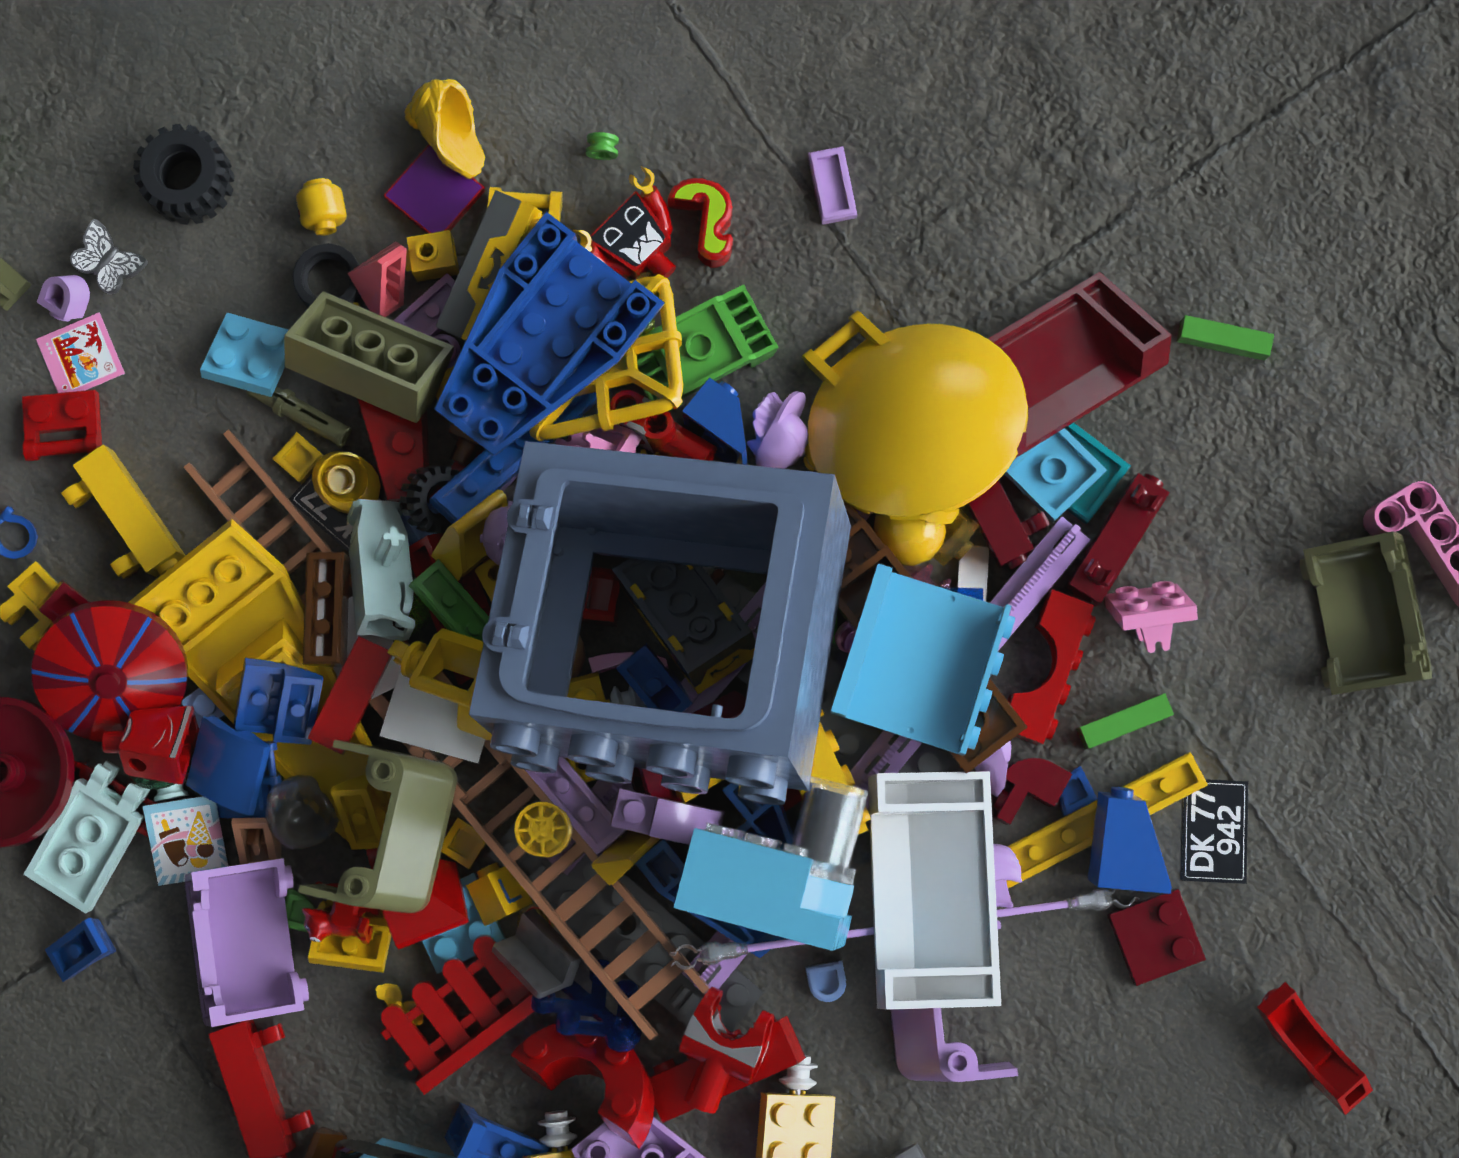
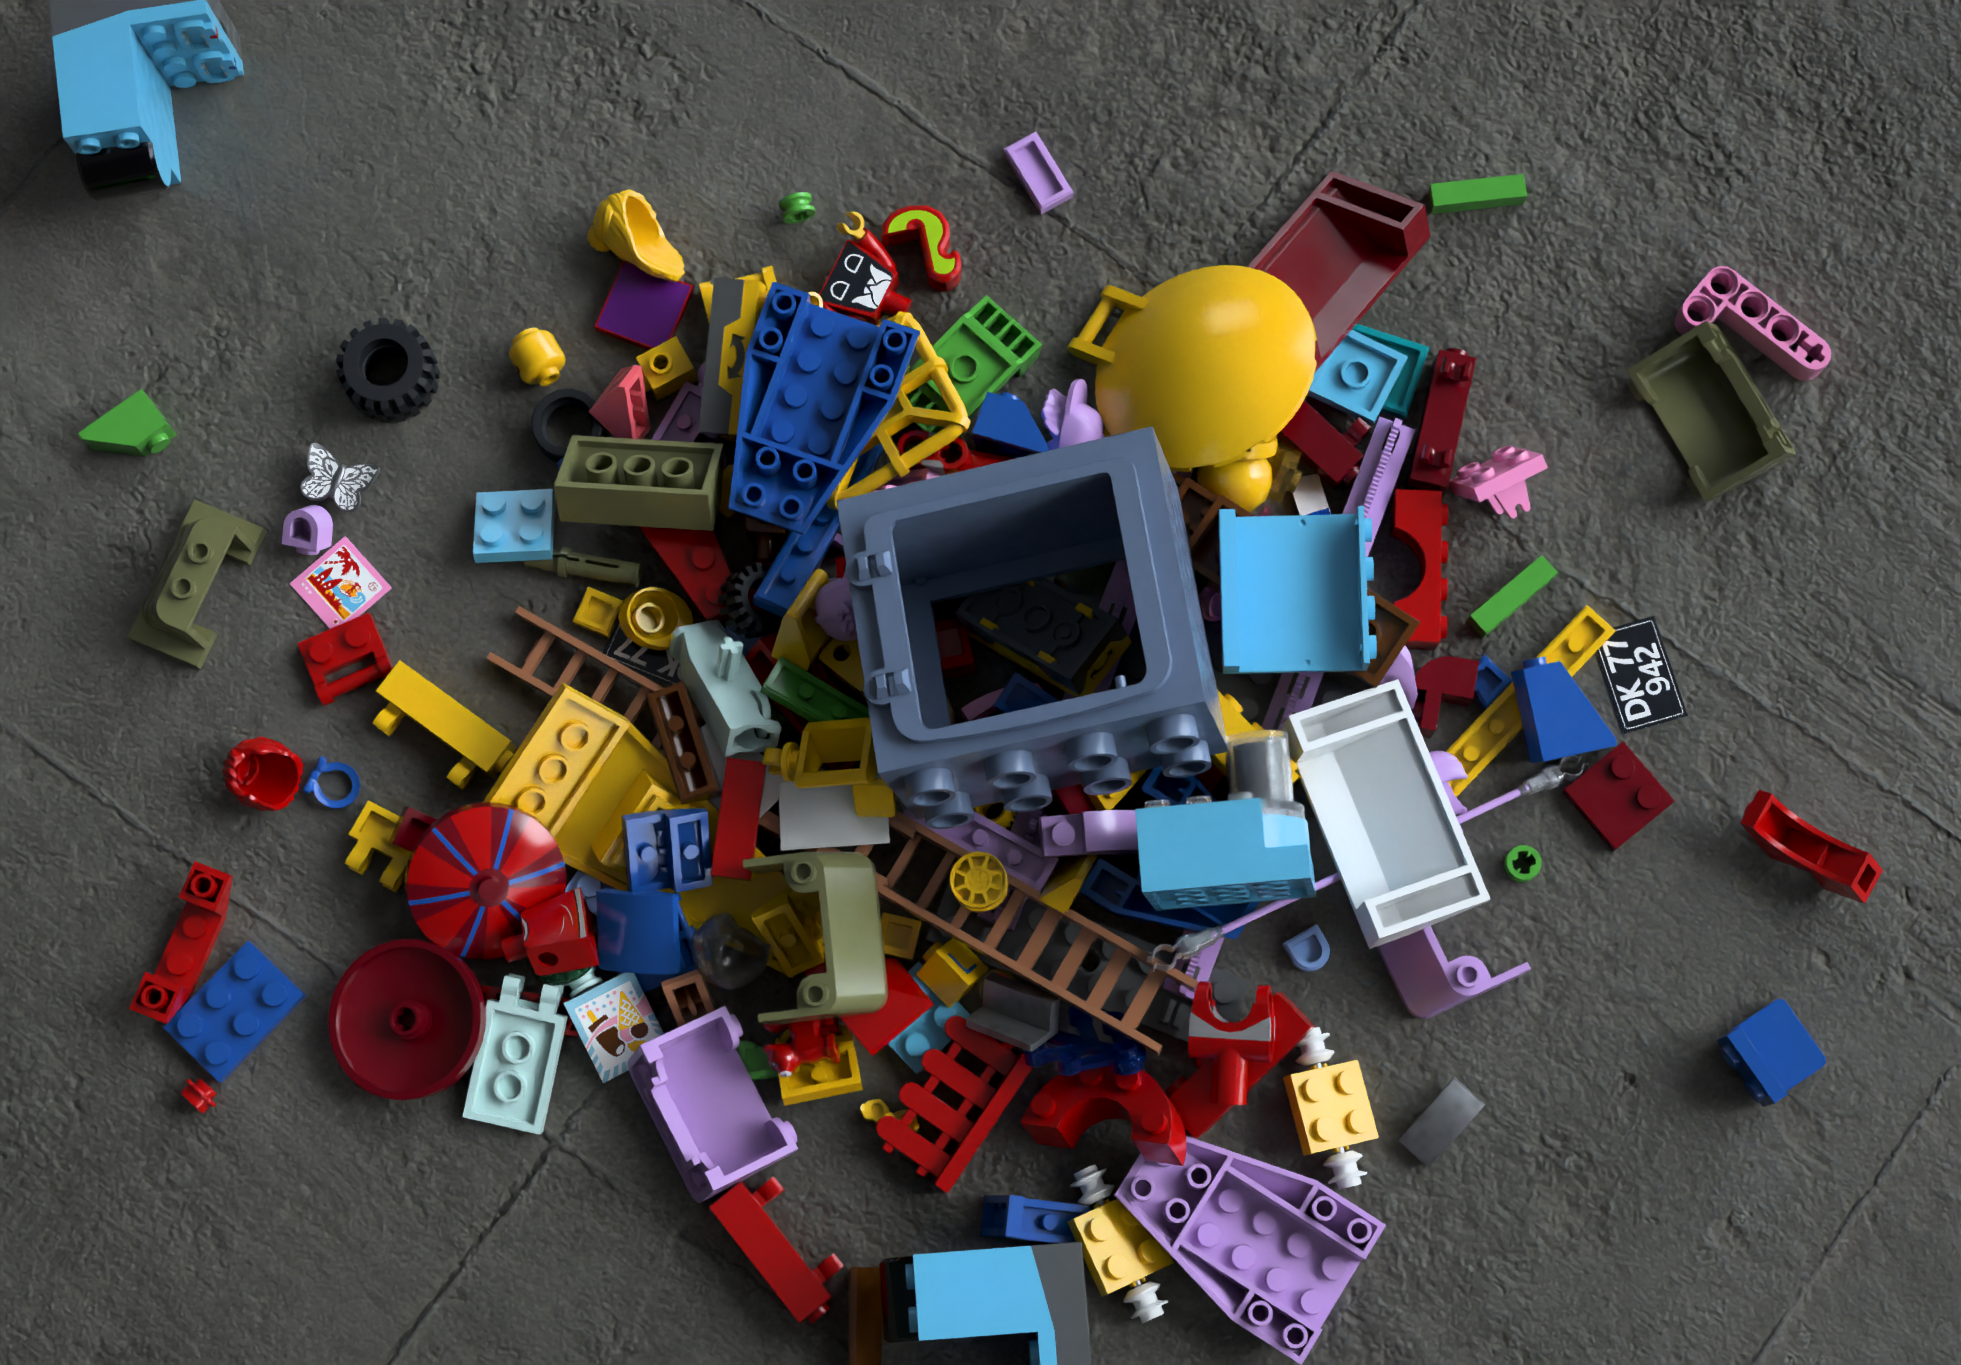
camera: 15 degrees left, 5 degrees down
(80, 948) = (546, 1170): blue slope -> none
(1040, 959) = (1512, 856): none -> bright green bush

